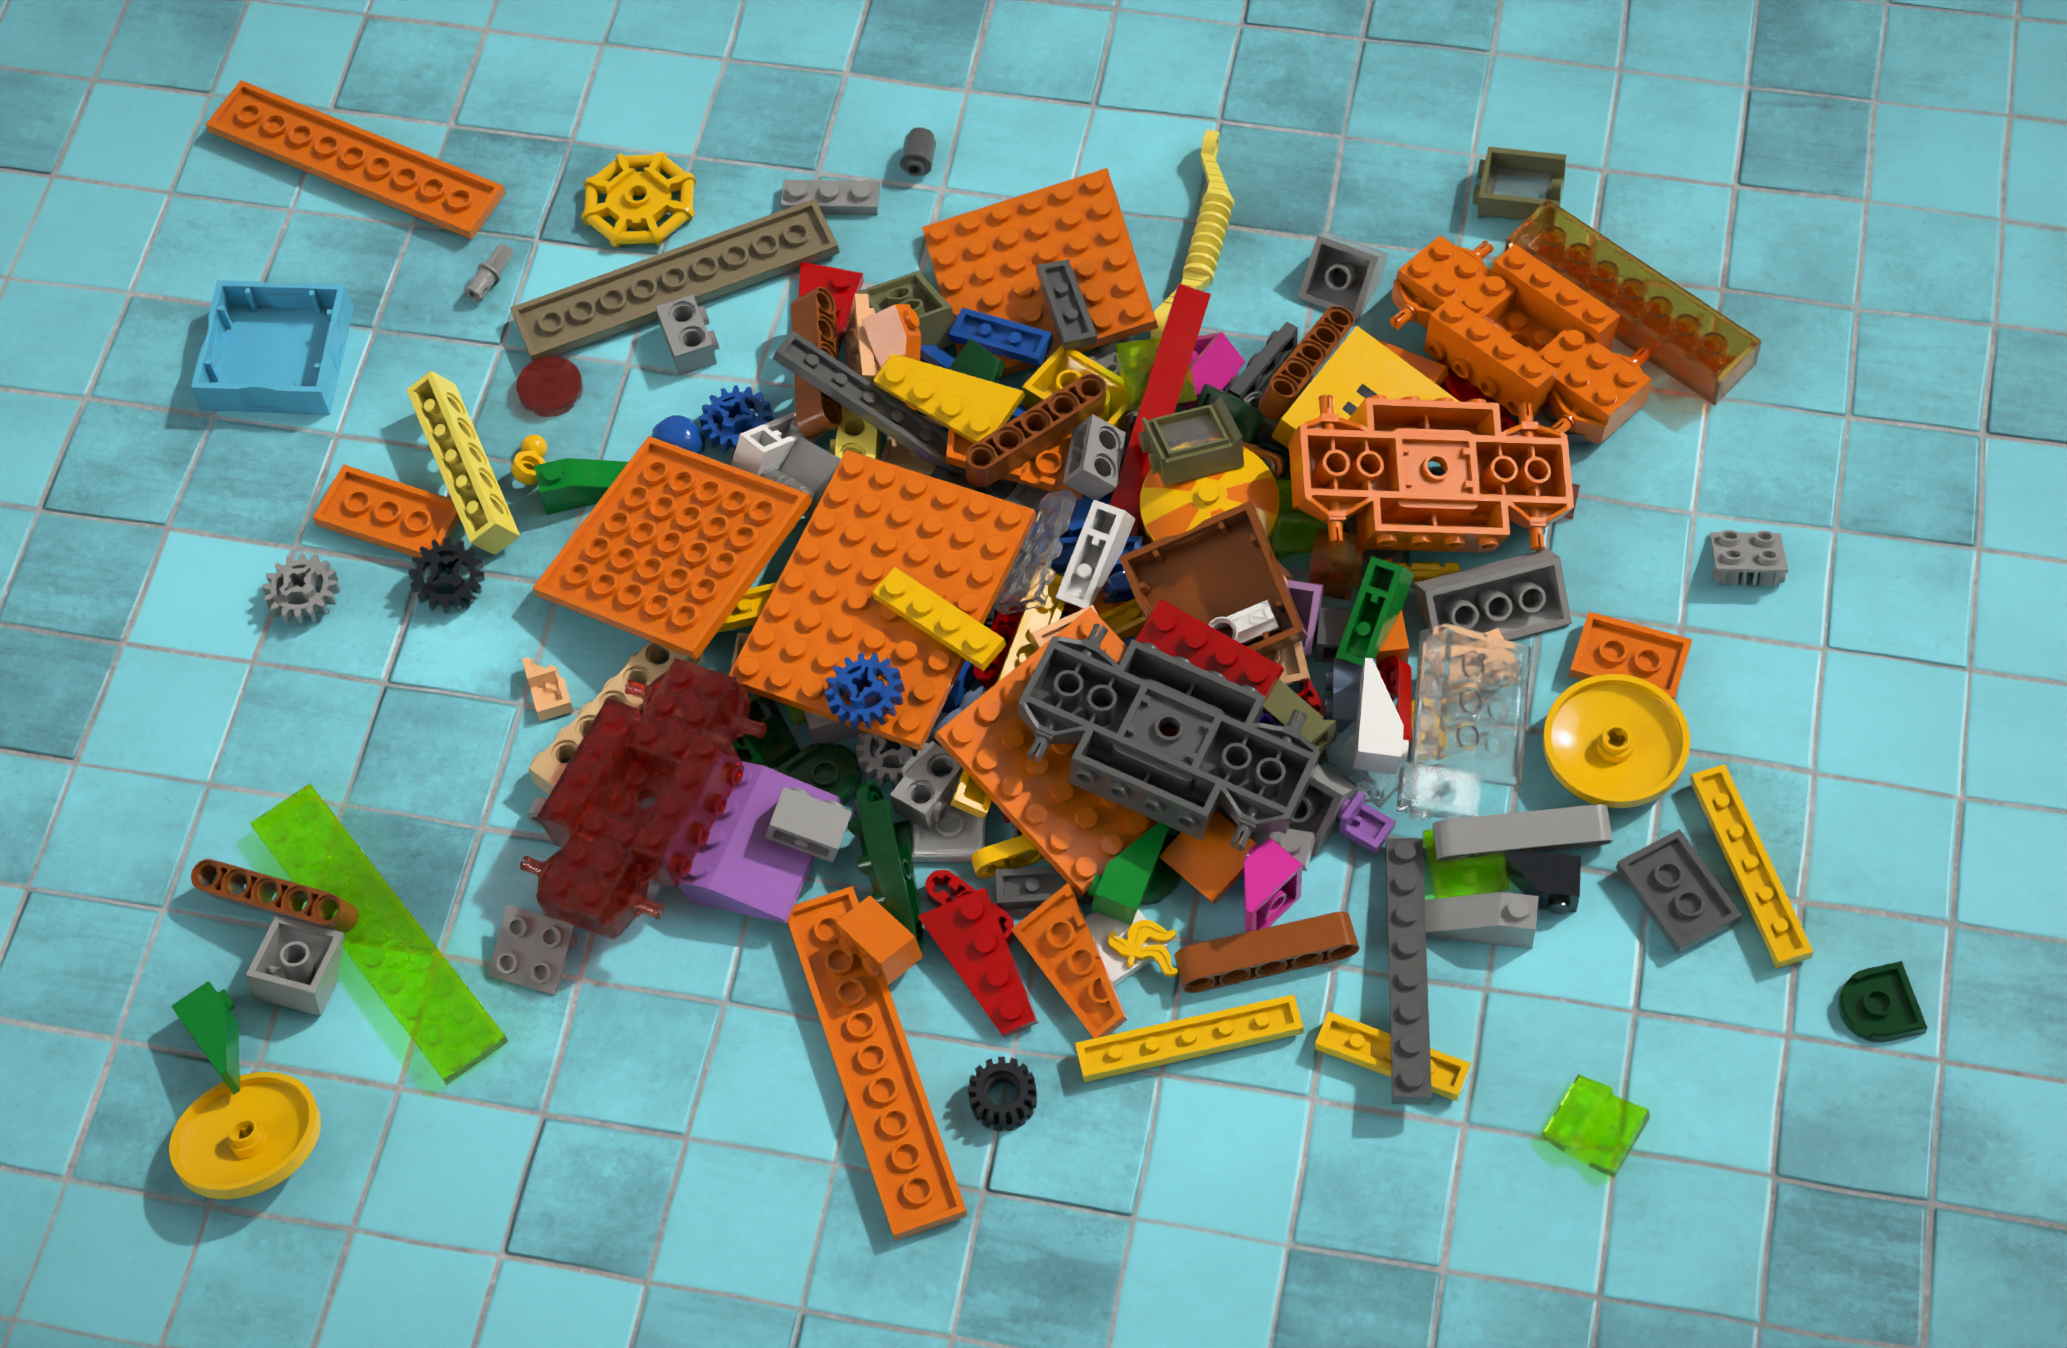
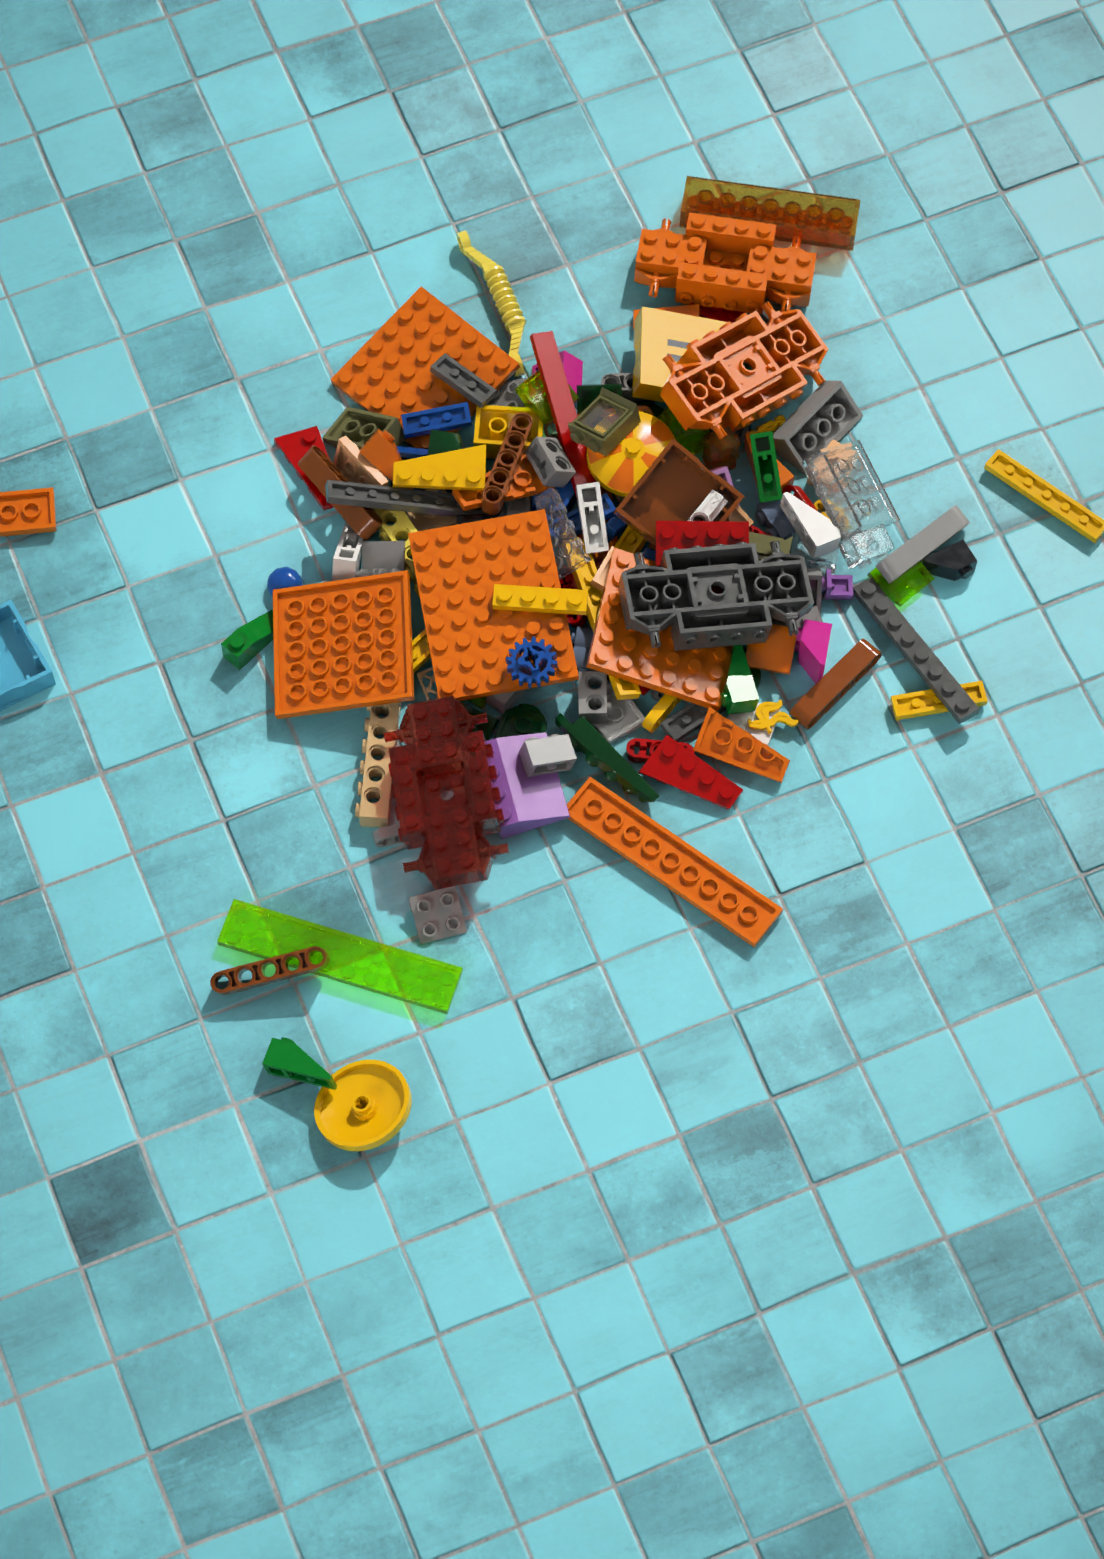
camera: 40 degrees left, 5 degrees up
(296, 965) = (314, 1000): light grey slope -> none
(301, 588) = (123, 788): light grey gear -> none
(386, 512) = (147, 721): orange plate -> none
(438, 564) = (223, 737): black gear -> none
(463, 463) = (171, 666): light yellow brick -> none
(488, 273) = (86, 545): light grey axle -> none
(532, 452) = (209, 647): yellow plate -> none
(547, 690) = (325, 769): light nougat slope -> none
(549, 386) = (180, 593): clear red tile -> none
(639, 213) = (146, 462): yellow plate -> none
(687, 335) = (238, 521): light grey brick -> none
(700, 269) = (205, 490): dark tan plate -> none
(733, 416) = (301, 552): blue gear -> none
(833, 195) = (258, 389): light grey plate -> none
(878, 940) = (633, 795): orange brick -> none
(890, 759) = (565, 694): light grey gear -> none
(918, 152) = (292, 334): dark grey brick -> none
(999, 1073) = (760, 827): black tyre -> none
(1189, 1038) = (828, 752): yellow plate -> none
(1266, 363) = (591, 358): dark grey plate -> none
(1306, 361) = (622, 343): dark orange beam -> none
(1330, 632) = (747, 485): dark grey brick -> none
(1342, 273) = (597, 281): light grey slope -> none
(1484, 918) = (935, 600): light grey slope -> none
(1518, 182) = (657, 175): olive window -> none
(1596, 1125) = (1063, 676): clear neon green slope -> none
(1616, 740) = (936, 467): yellow dish -> none
(1632, 650) = (908, 417): orange plate -> none
(1678, 891) = (1020, 530): dark grey plate -> none
(1745, 553) = (930, 328): light grey hinge -> none

